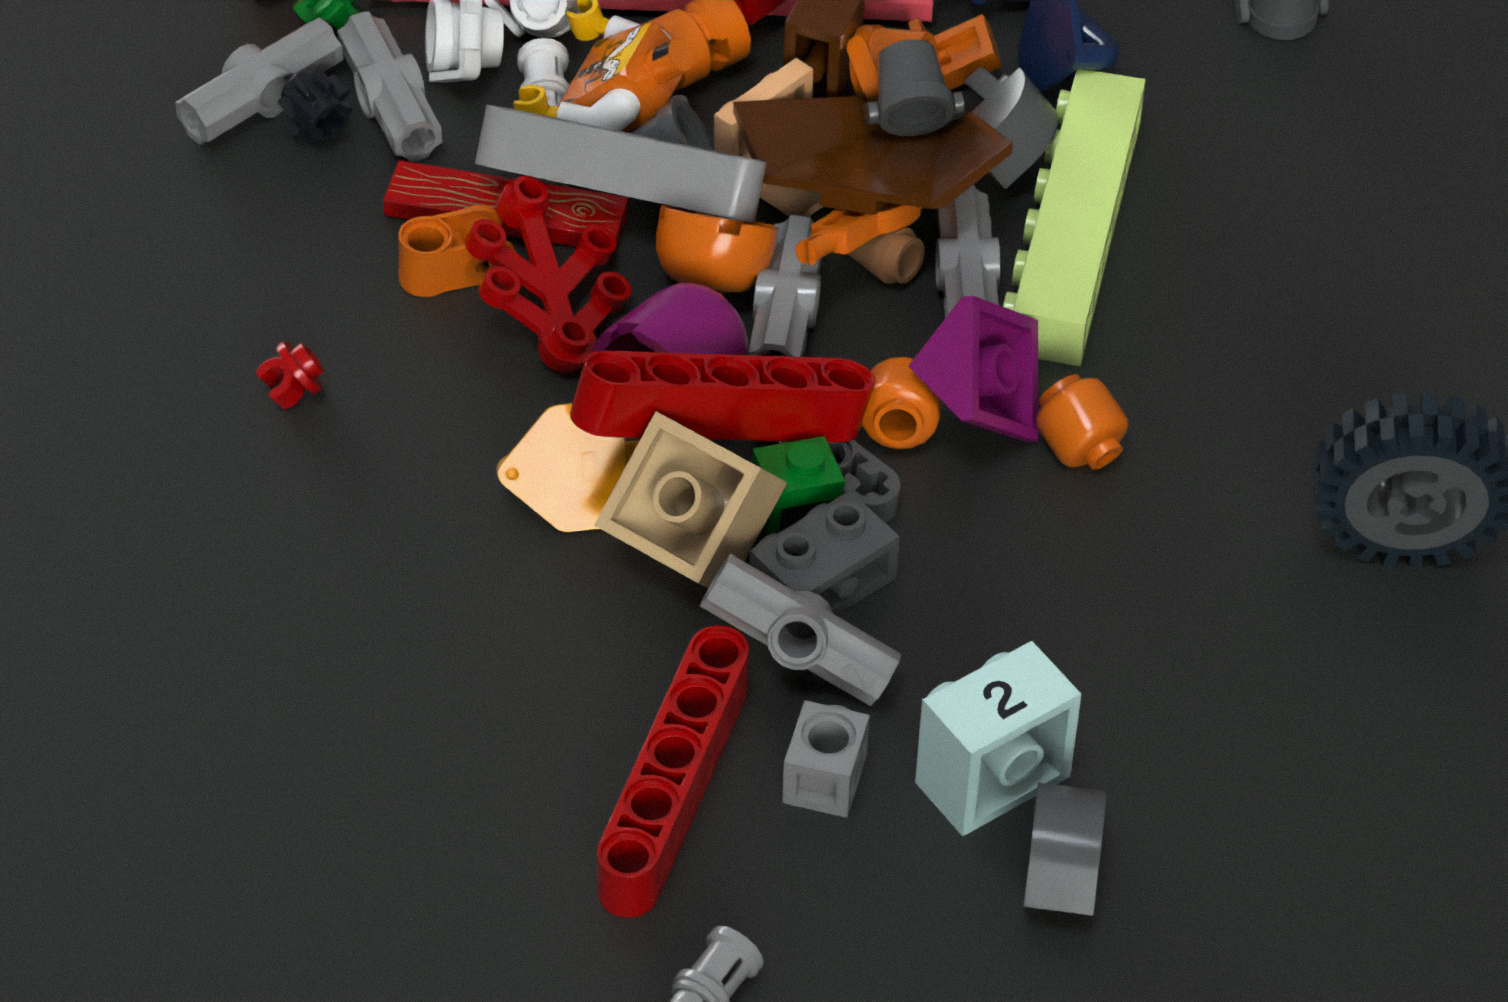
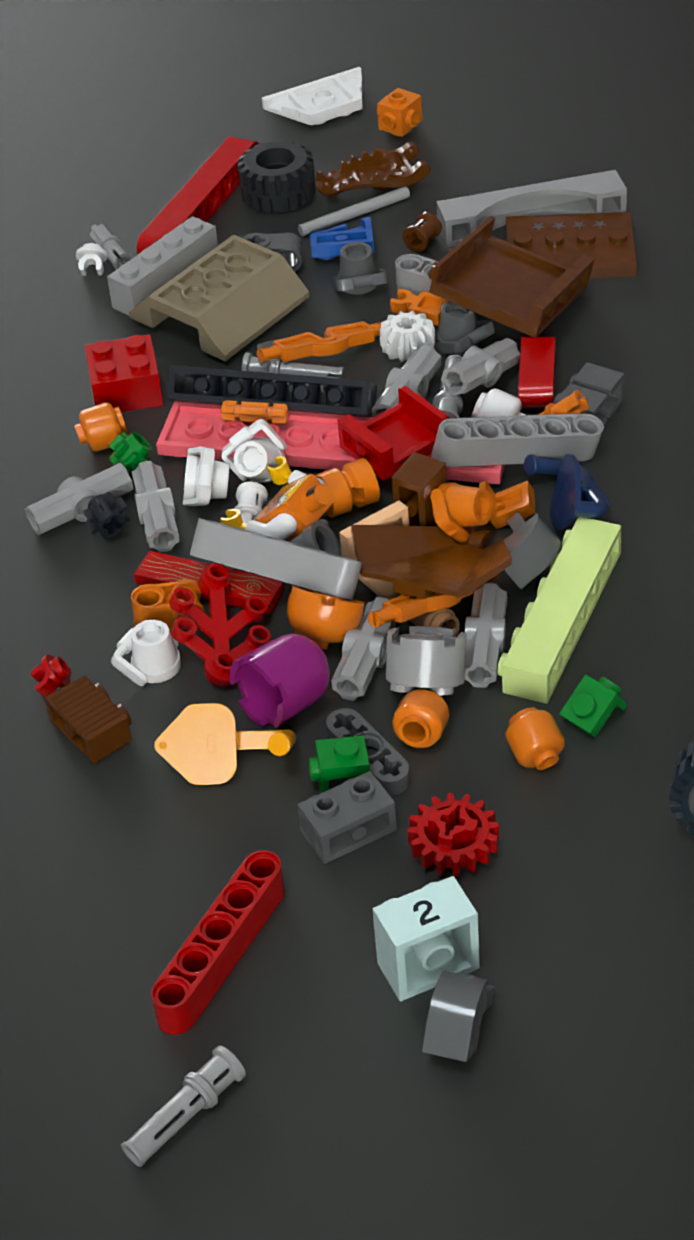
camera: 15 degrees right, 5 degrees down
(374, 439) = (89, 718): none -> reddish brown brick
(450, 327) = (153, 653): none -> white piece
(689, 501) = (266, 772): tan slope -> none
(723, 395) = (297, 705): red beam -> none
(825, 758) = (318, 942): light grey brick -> none
(836, 653) = (296, 842): light grey piece -> none
(889, 307) = (425, 659): none -> light grey brick
(911, 91) = (464, 524): dark grey piece -> none
(985, 367) = (474, 699): magenta slope -> none
(1022, 586) = (453, 834): none -> red gear
(1155, 363) = (592, 704): none -> green bracket

